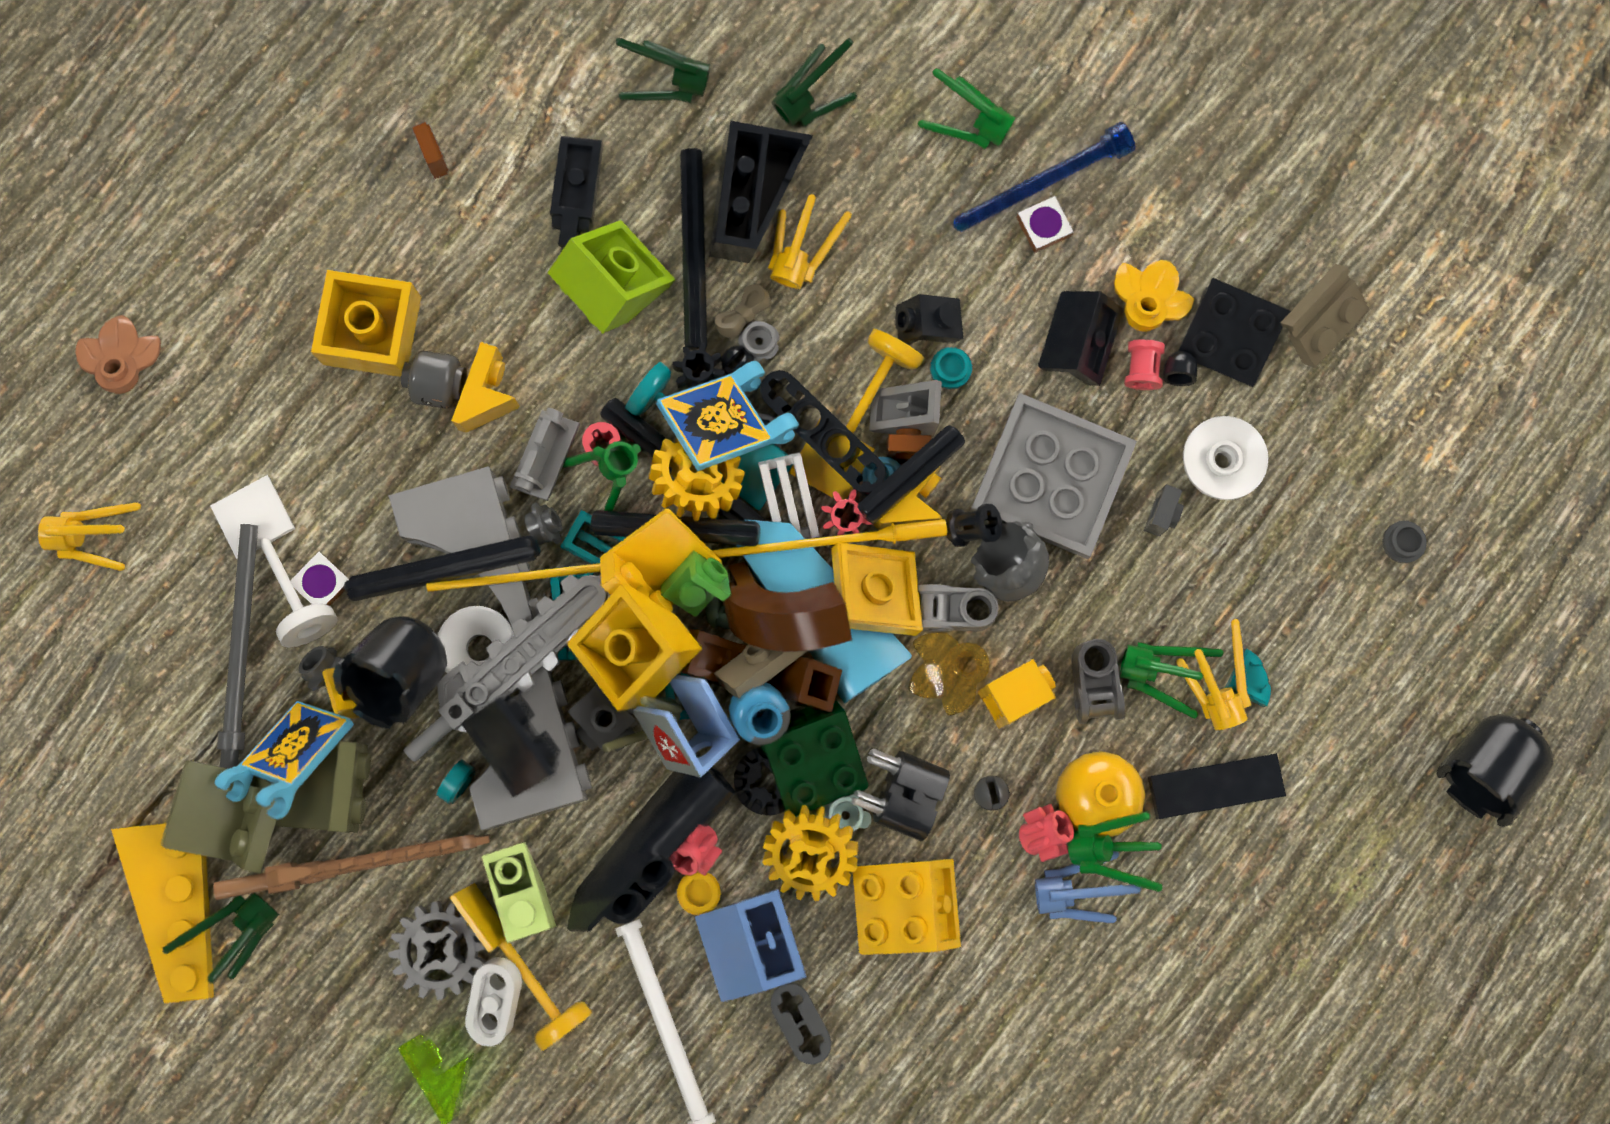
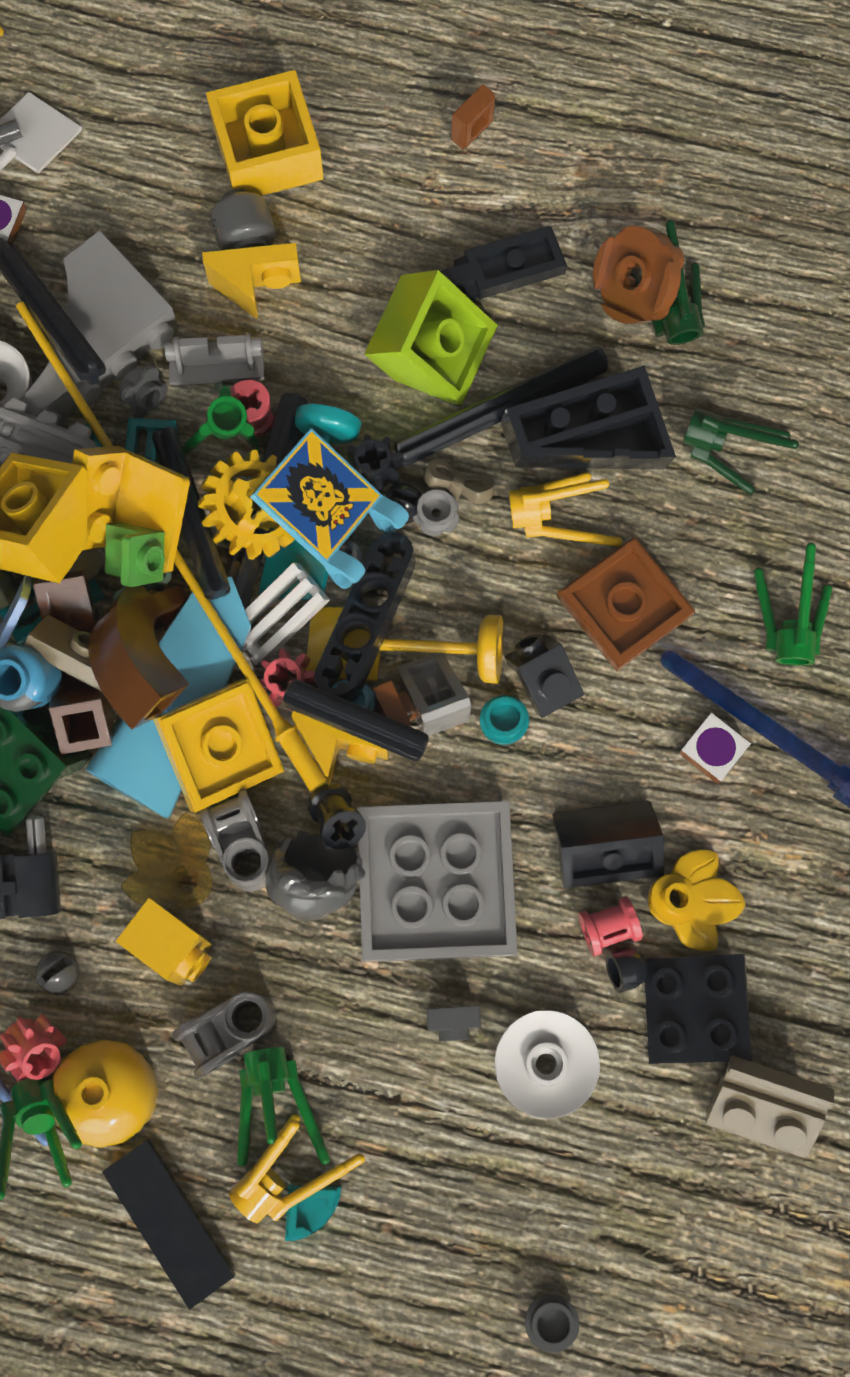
camera: 70 degrees right, 5 degrees down
(648, 67) = (660, 268): none -> dark orange plate
(903, 233) = (625, 603): none -> dark orange plate

